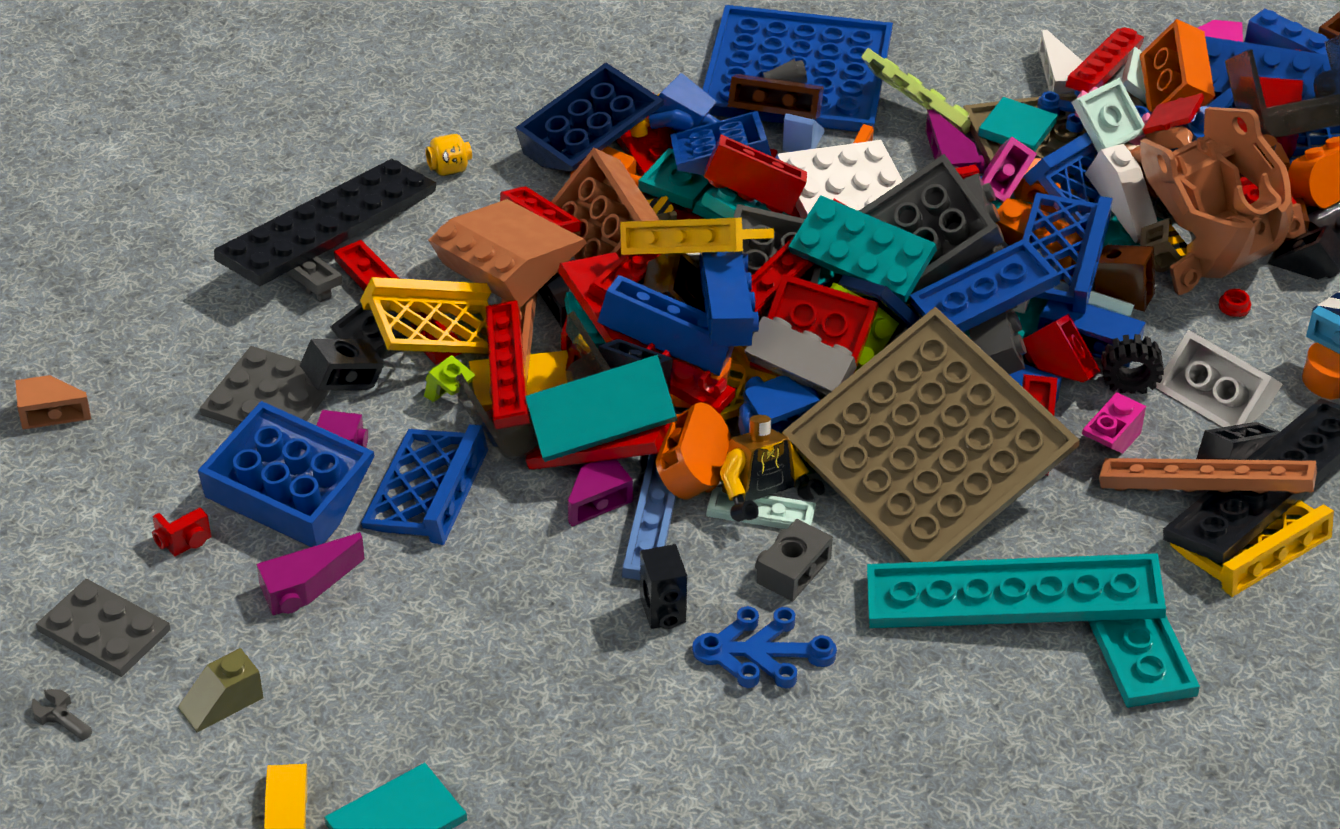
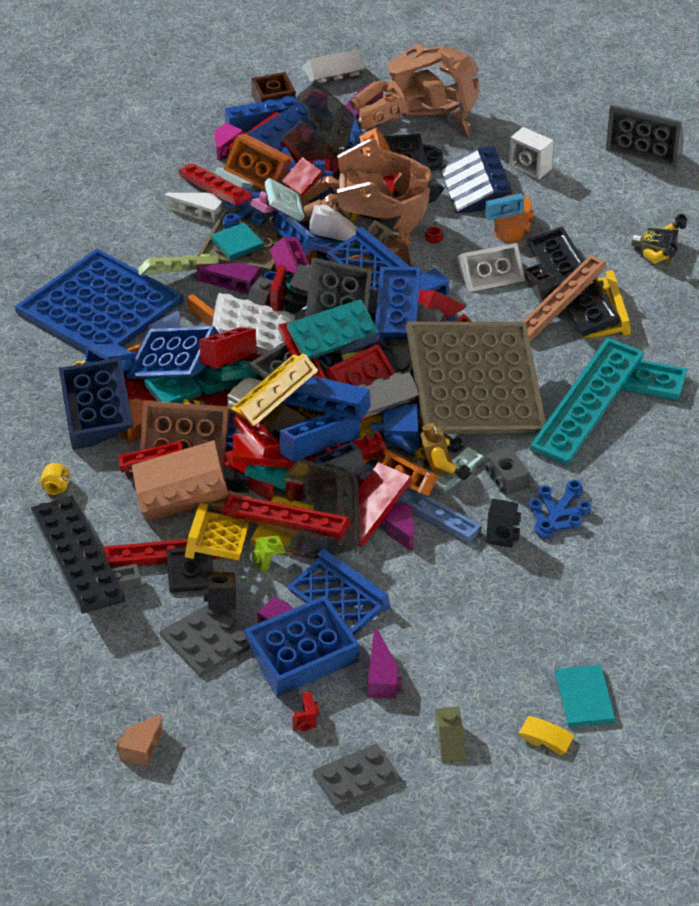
camera: 60 degrees left, 0 degrees up
(60, 713) = (413, 817): dark grey bar -> none
(601, 408) = (367, 486): teal tile -> none
(775, 96) = (138, 317): reddish brown brick -> none
(791, 71) = (116, 307): dark grey cone -> none
(1117, 423) = (497, 310): dark pink slope -> none
(1132, 351) = (462, 286): black tyre -> none

